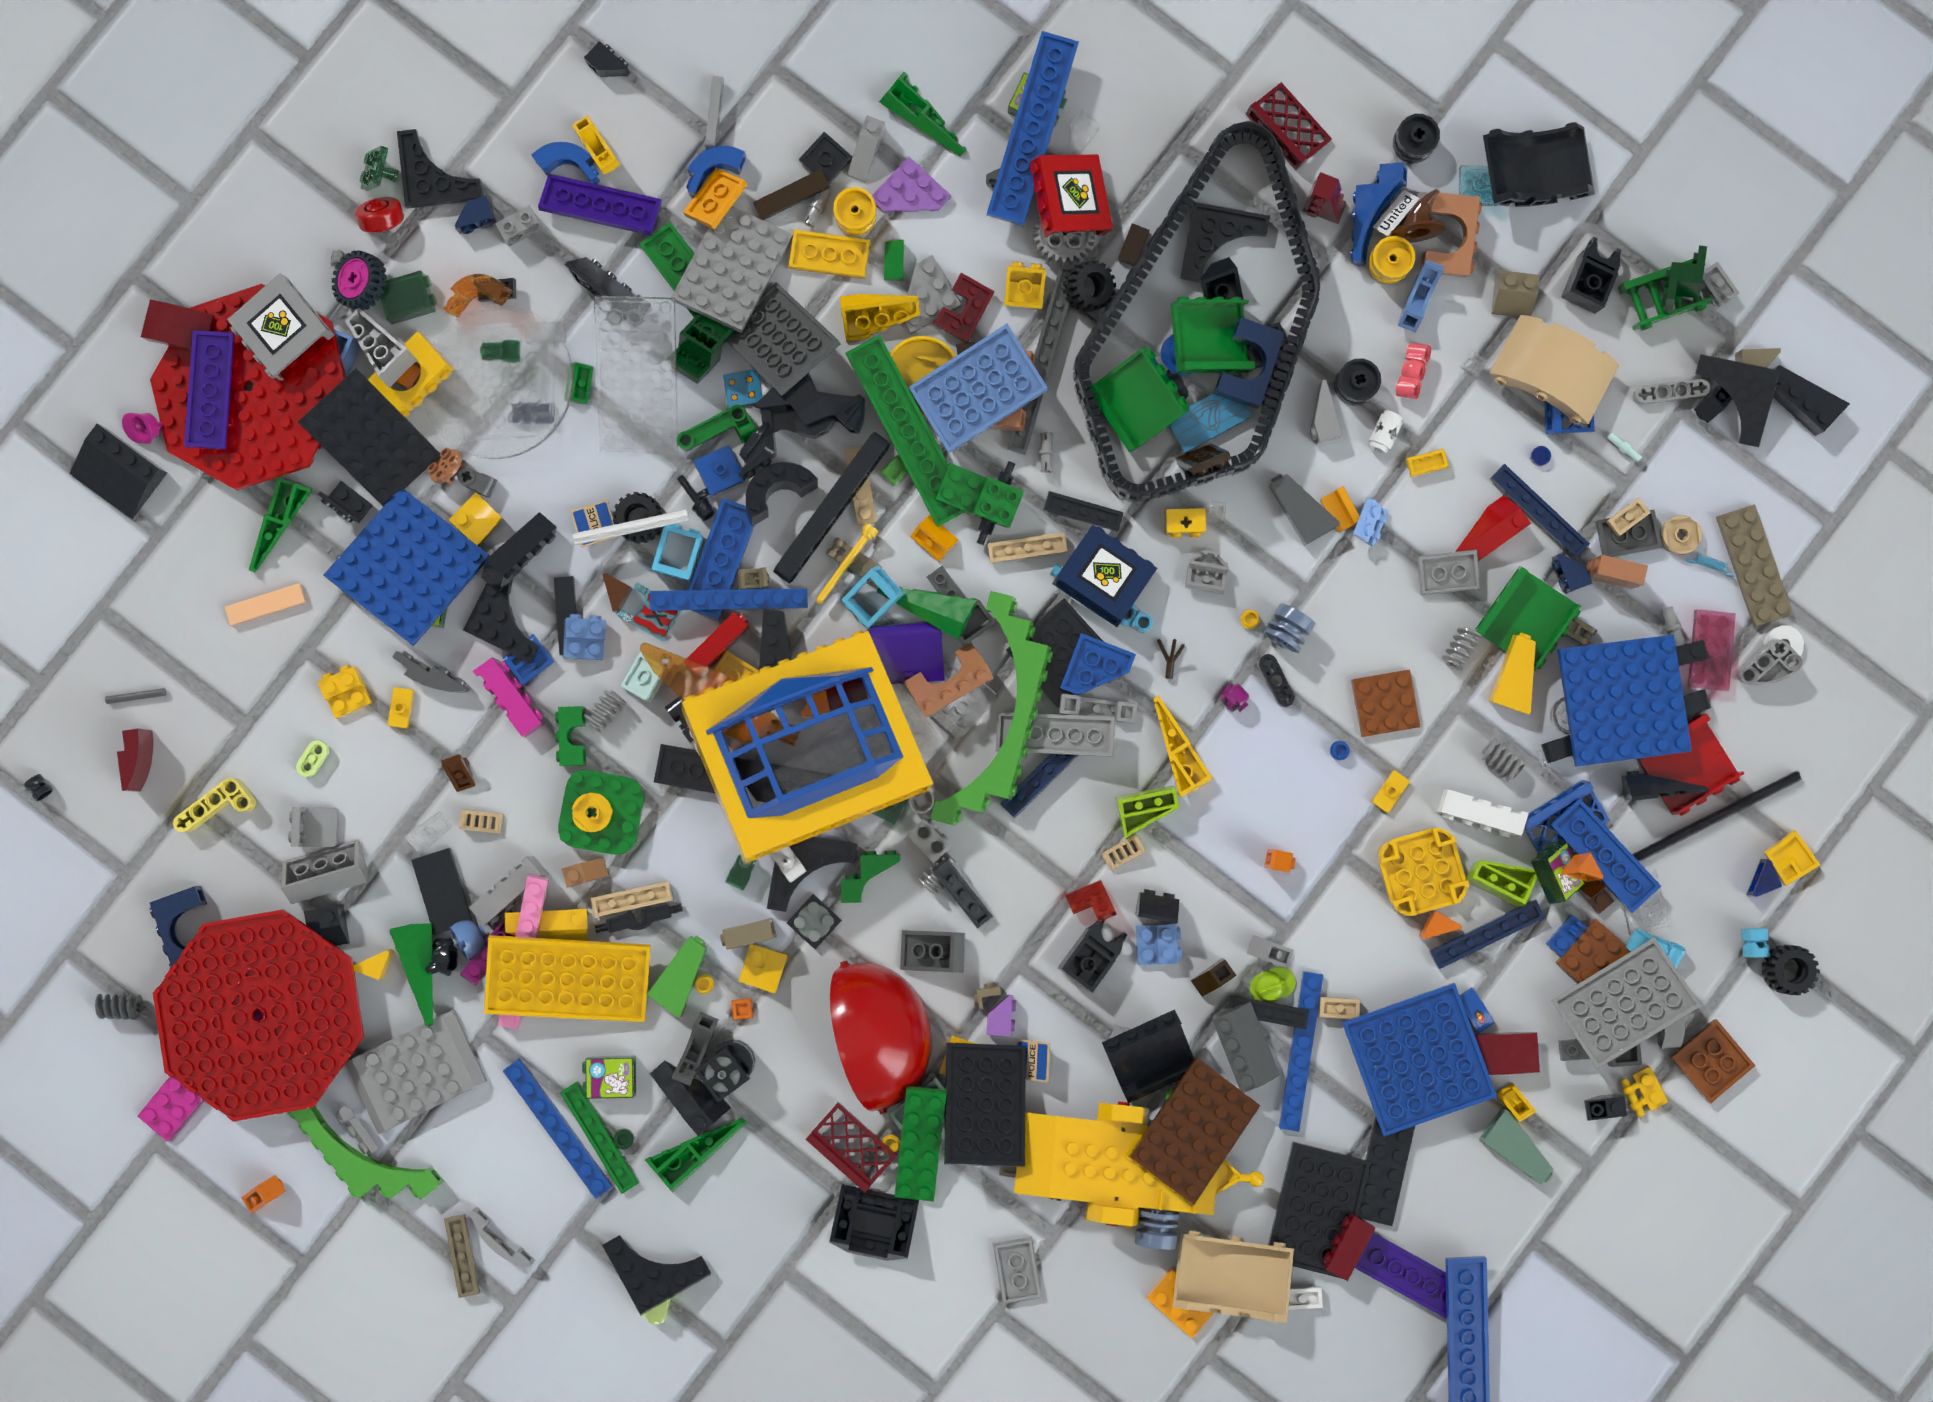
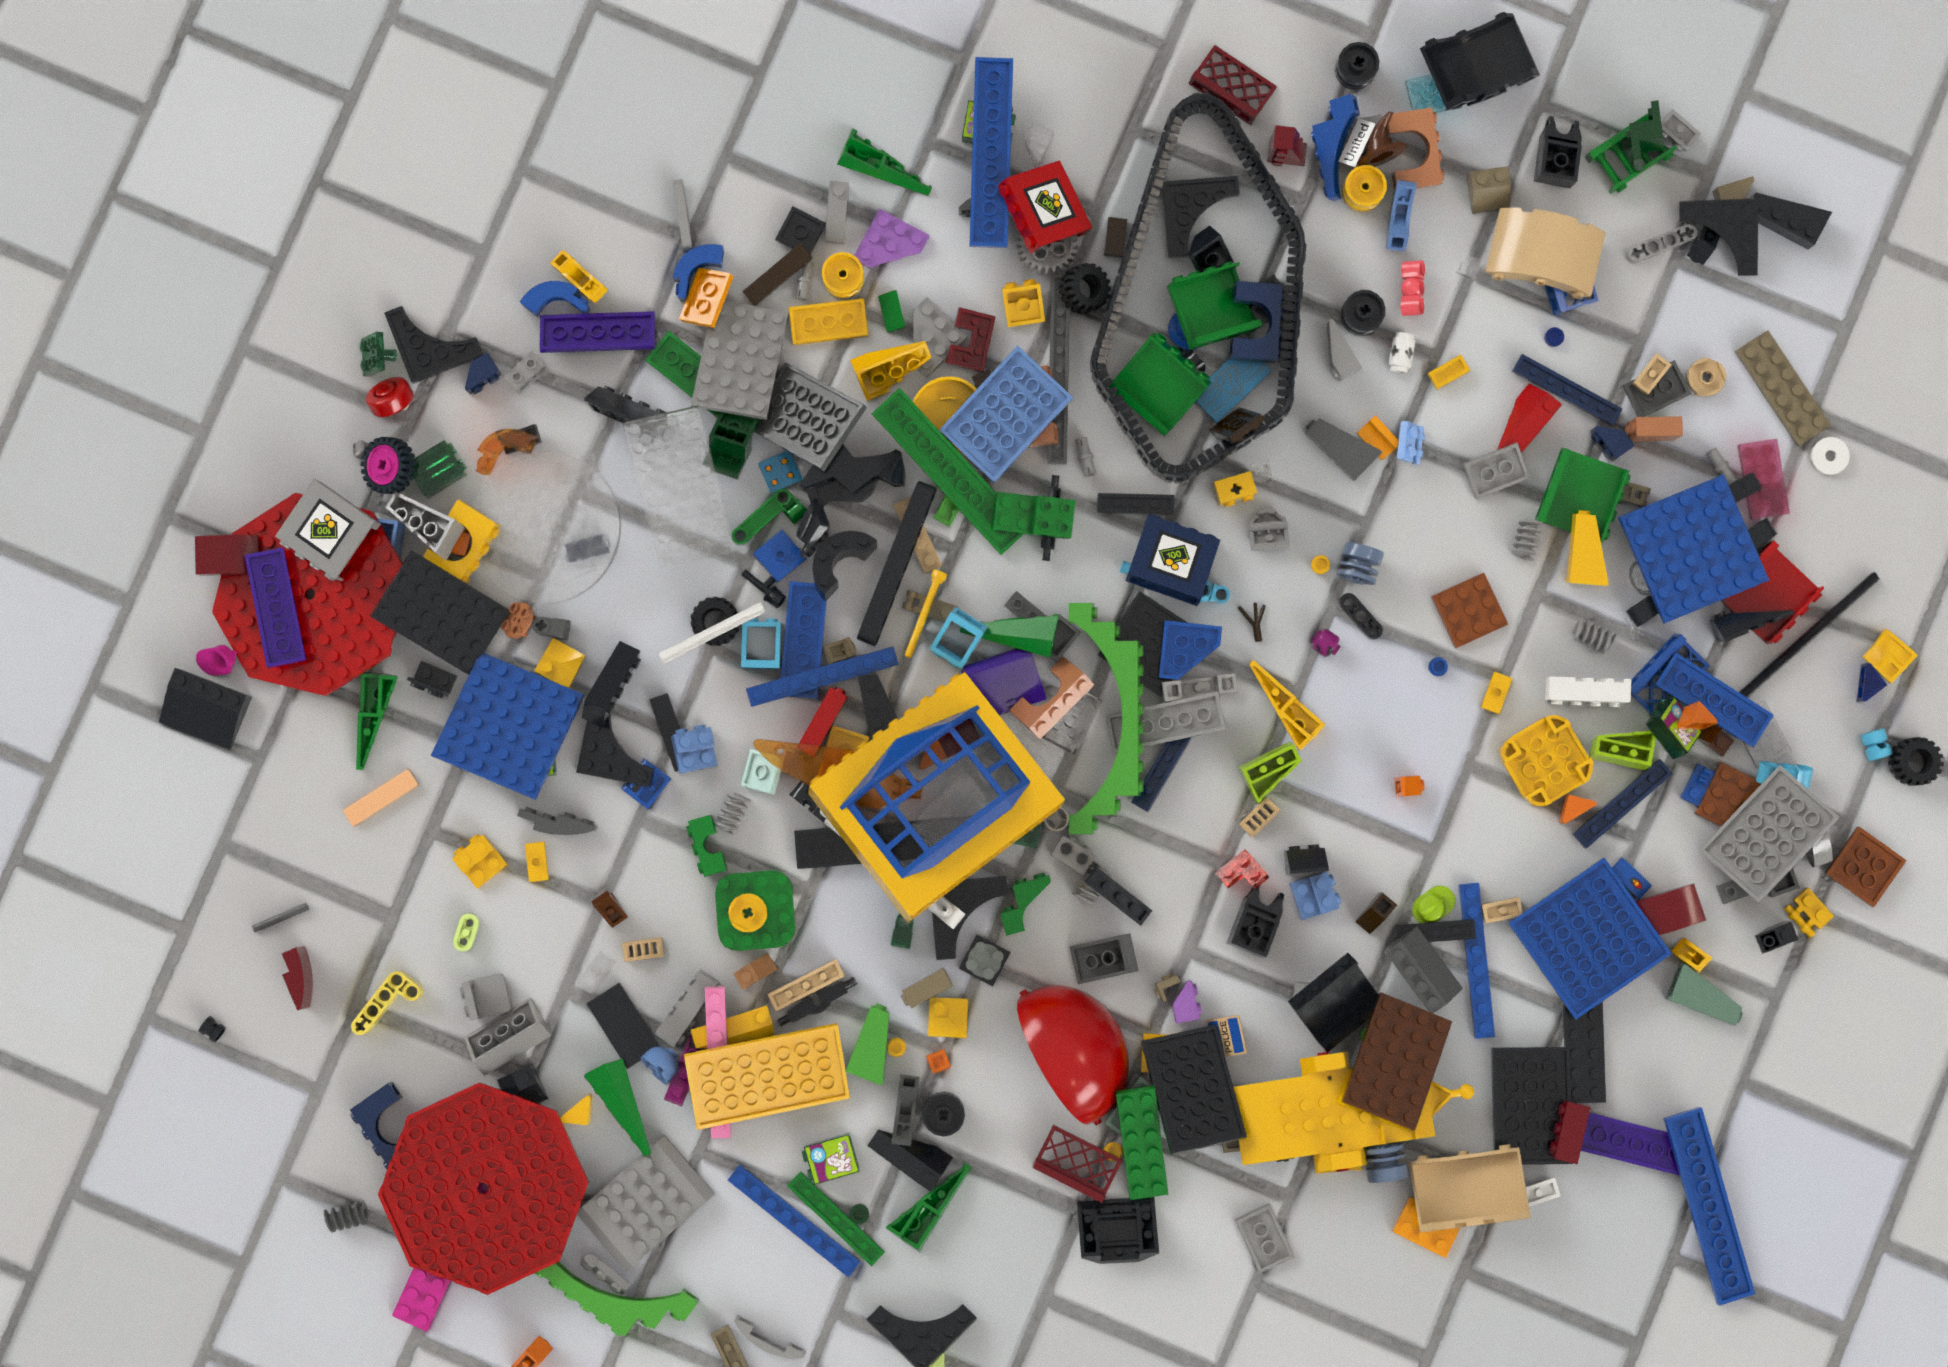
camera: 15 degrees left, 0 degrees up
(443, 958) = (643, 1087): black hair -> none
(506, 351) = (547, 496): clear green piece -> none
(509, 696) = (639, 824): dark pink wedge -> none
(582, 383) = (626, 506): green slope -> none
(592, 517) = (671, 633): piece -> none
(605, 63) = (565, 194): black slope -> none
(617, 592) = (713, 696): reddish brown slope -> none
(653, 622) = (756, 717): flag -> none
(722, 1074) = (938, 1126): black piece -> none
(934, 539) = (1002, 567): light orange panel -> none
(1027, 547) = (1092, 552): tan plate -> none
(1269, 951) = (1422, 874): light grey slope -> none
(1624, 447) = (1631, 308): light aqua bar -> none
(1720, 565) = (1746, 396): medium azure piece -> none
(1776, 666) = (1827, 481): light grey beam -> none

